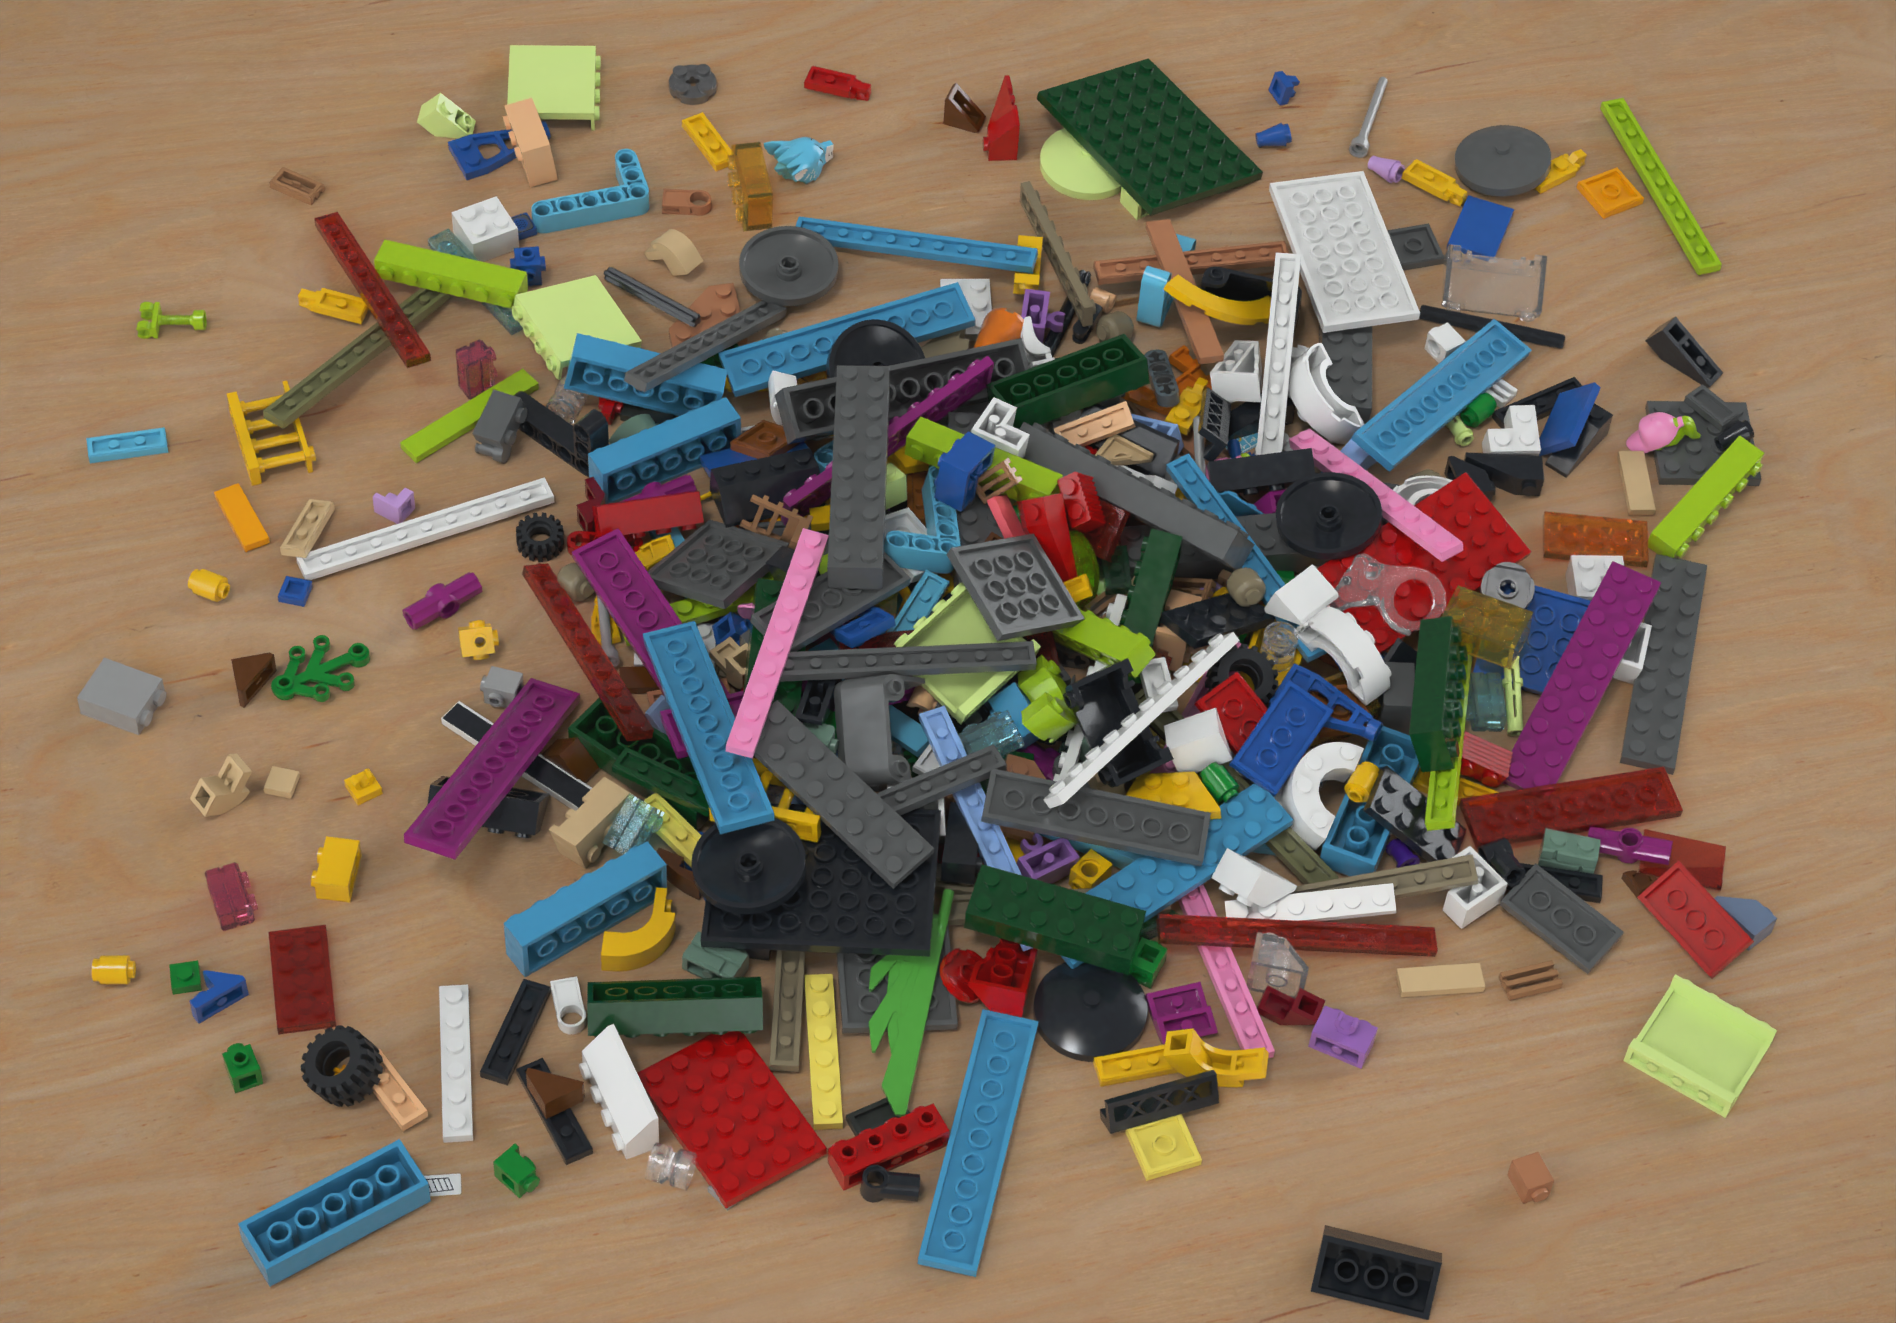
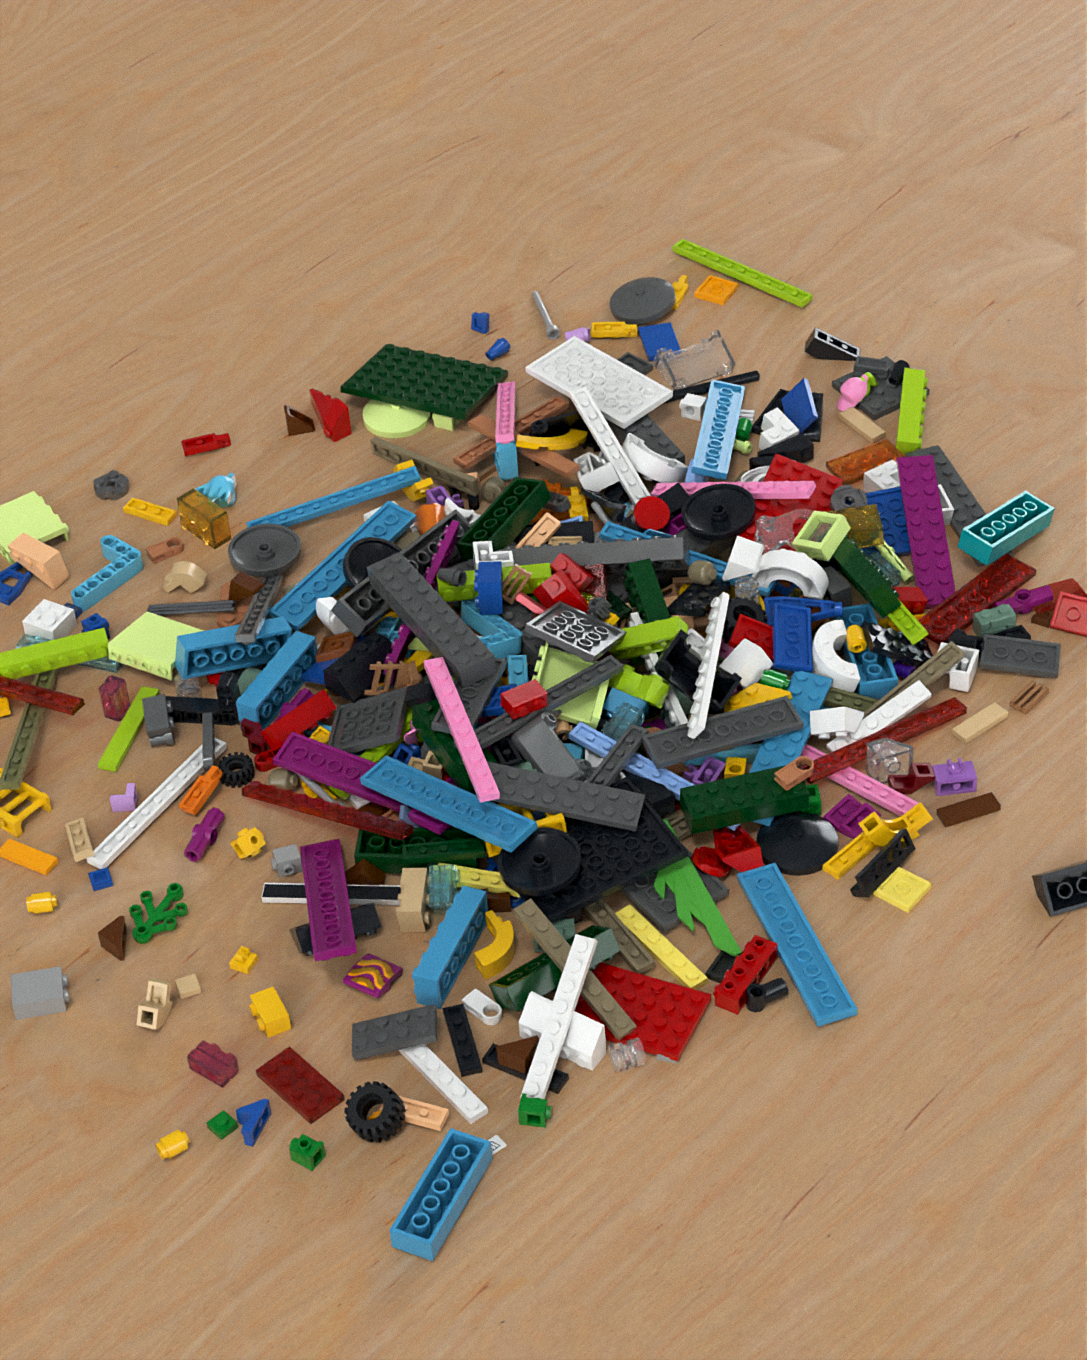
camera: 25 degrees left, 10 degrees down
(444, 978) = (394, 1032): none -> dark grey plate
(479, 543) = (200, 791): none -> orange hinge
(482, 890) = (372, 975): none -> slope
(531, 484) = (208, 742): none -> dark grey beam
(615, 1078) = (559, 1017): none -> white plate
(681, 1026) = (558, 950): none -> dark tan plate
(718, 304) = (243, 586): none -> reddish brown slope
(877, 645) = (524, 699): none -> red brick
(930, 432) = (453, 576): none -> dark grey cone
(1074, 569) = (599, 608): none -> dark grey gear
(1120, 924) = (791, 775): none -> nougat piece
(1195, 234) = (505, 412): none -> bright pink plate
(1249, 472) = (651, 513): none -> red tile
(1329, 1088) = (968, 809): none -> reddish brown tile
(1422, 619) = (821, 535): none -> yellowish green window
(1684, 732) = (1005, 527): none -> teal brick

